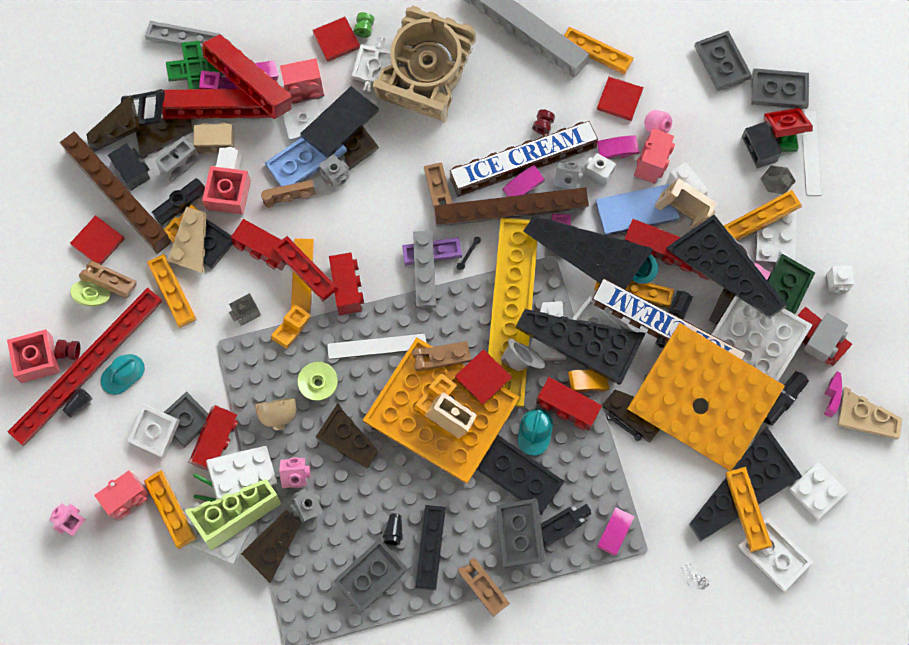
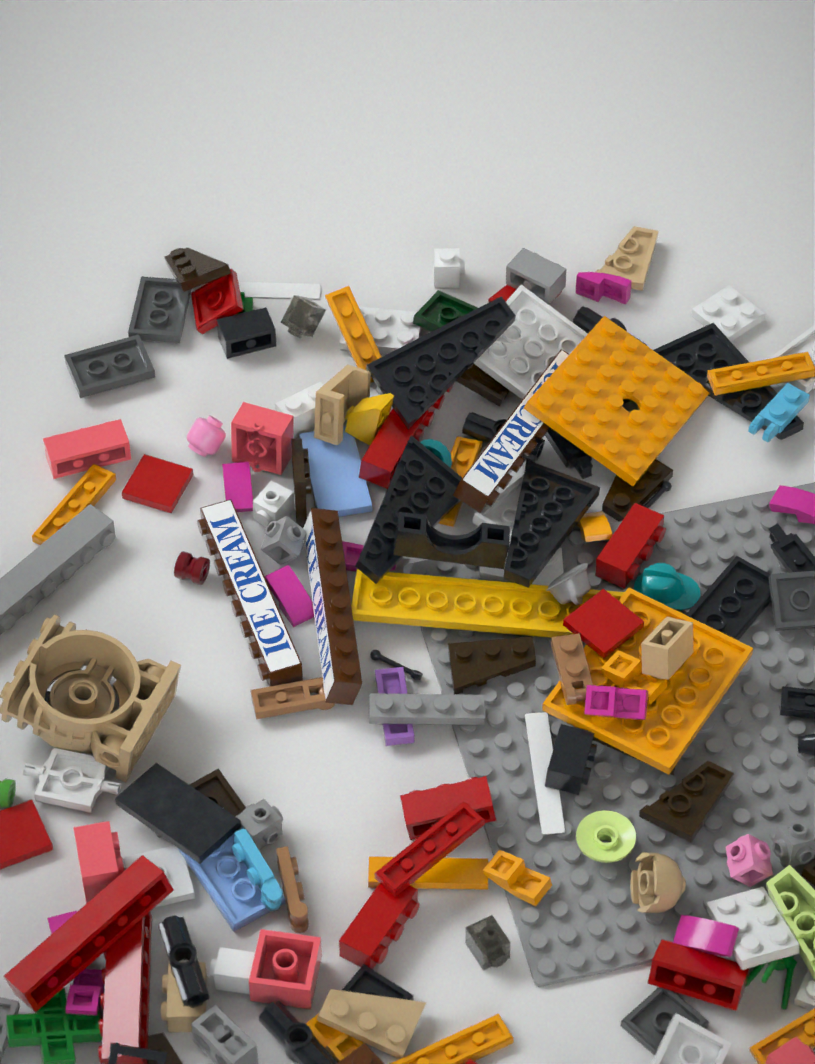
camera: 90 degrees left, 20 degrees down
(214, 131) = (187, 974): none -> black piece
(233, 441) = (706, 935): none -> dark pink slope
(296, 170) = (258, 870): none -> medium azure hinge
(379, 358) = (570, 759): none -> black brick
(411, 379) = (616, 702): none -> dark pink slope
(467, 307) = (482, 660): none -> dark brown wing
(551, 291) = (482, 547): none -> black arch
(621, 182) = (301, 479): none -> dark brown wing
(645, 51) = (87, 446): none -> coral brick
(678, 223) = (368, 417): none -> yellow slope
(708, 520) = (779, 411): none -> medium azure hinge
(815, 103) = (194, 268): none -> dark brown wing

